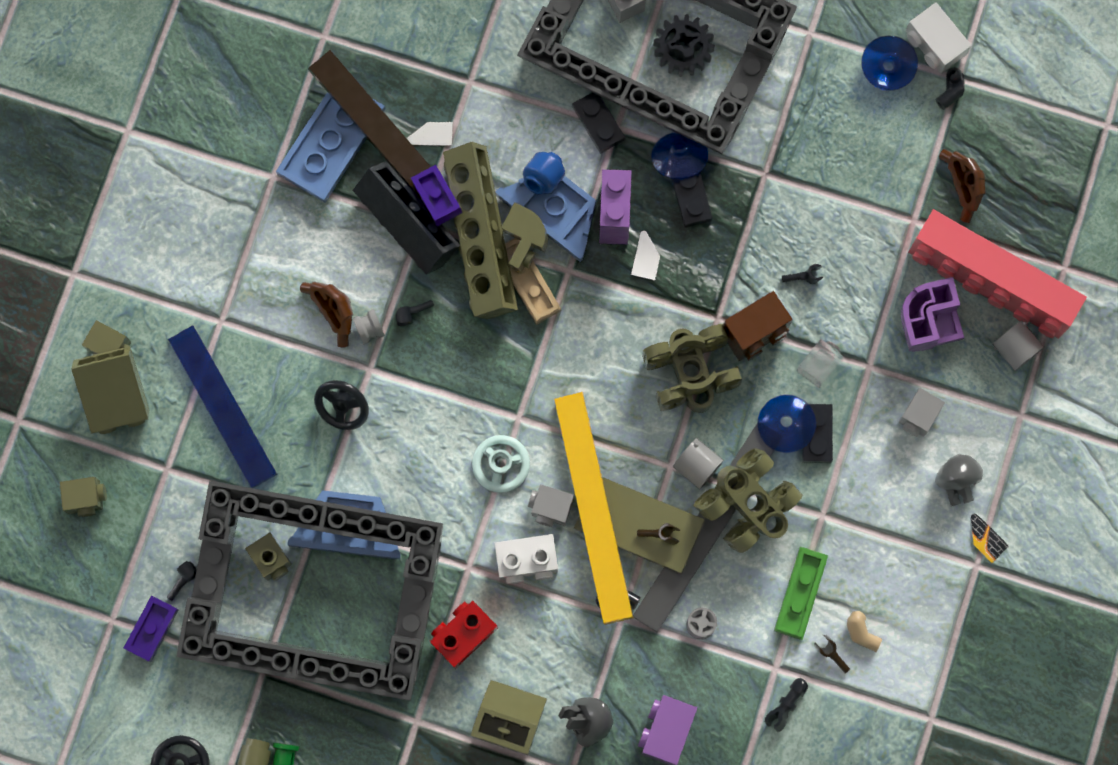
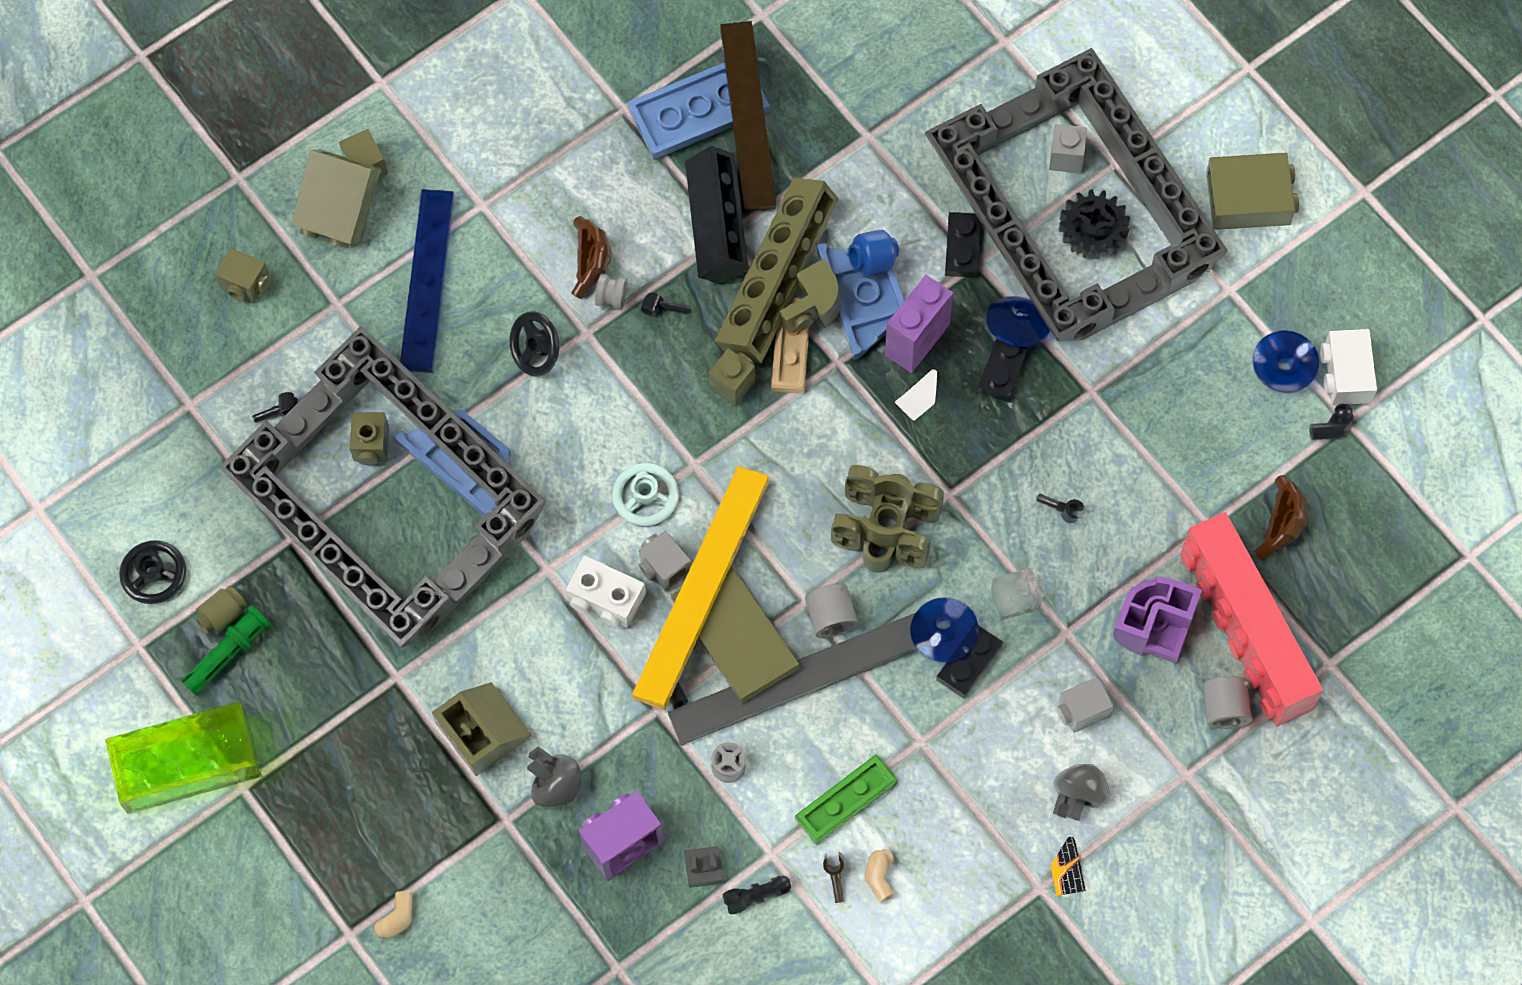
camera: 35 degrees right, 10 degrees down
(151, 628) = (216, 432): dark purple plate -> none
(433, 134) = (797, 161): white sticker -> none
(436, 195) = (758, 211): dark purple plate -> none
(466, 637) = (495, 621): red brick -> none
(504, 333) = (732, 376): none -> olive brick
(662, 533) = (750, 650): dark brown hand -> none
(736, 710) = (703, 866): none -> dark grey tile
(750, 469) = (858, 690): olive piece -> none
(757, 326) = (977, 518): reddish brown brick -> none

